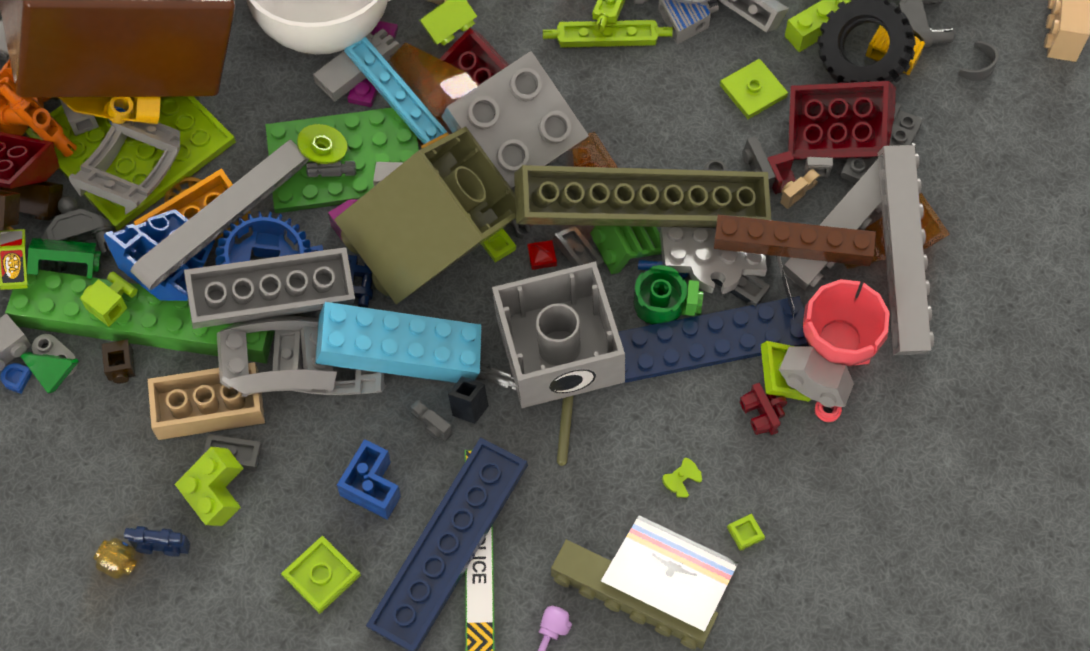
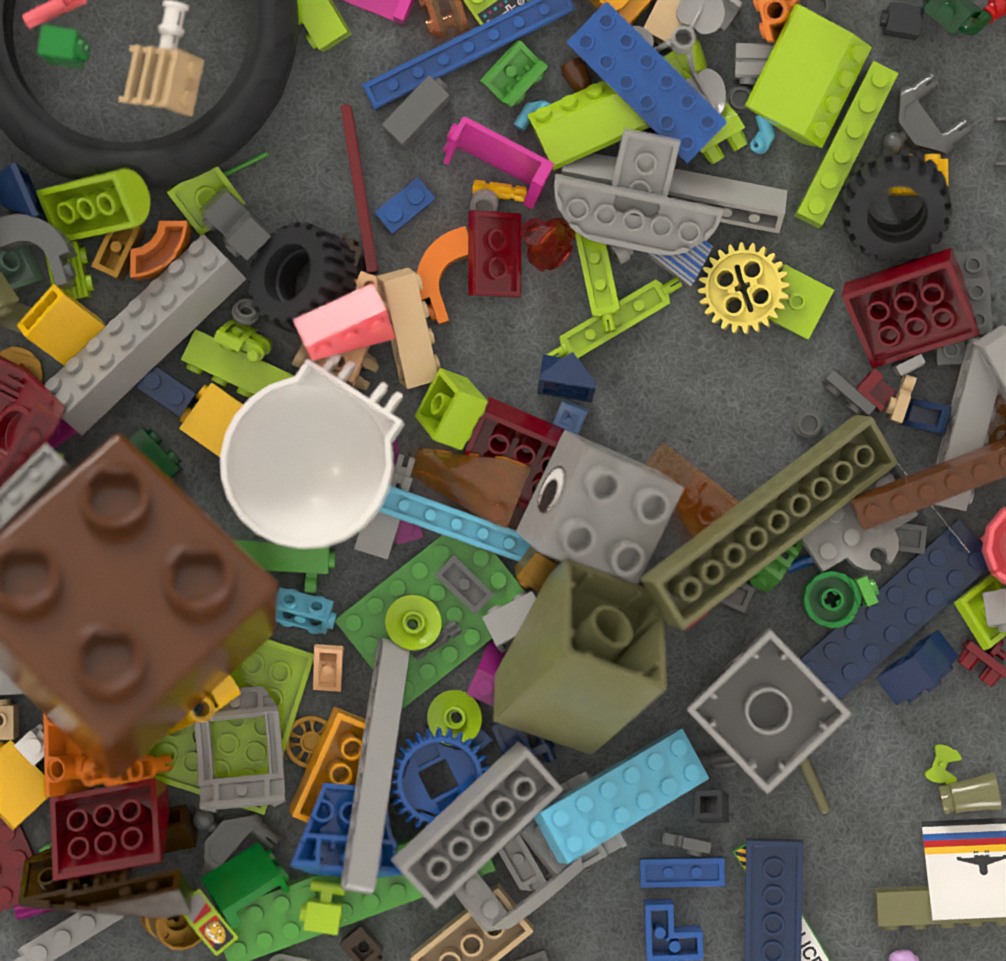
camera: 30 degrees left, 25 degrees up
(238, 146) = (328, 667): none -> light nougat slope
(245, 102) = (305, 610): none -> medium azure brick
(261, 65) = (288, 559): none -> bright green brick
(315, 226) = (445, 705): none -> lime dish
(379, 140) = (464, 584): none -> dark grey plate
(412, 443) = (682, 872): none -> blue plate
(547, 43) = (565, 378): none -> dark blue slope
(693, 508) = (971, 795): none -> olive plant
(702, 379) = (918, 669): none -> dark blue brick
(735, 59) = (768, 280): none -> light yellow gear
(813, 208) = (926, 416): none -> dark blue slope

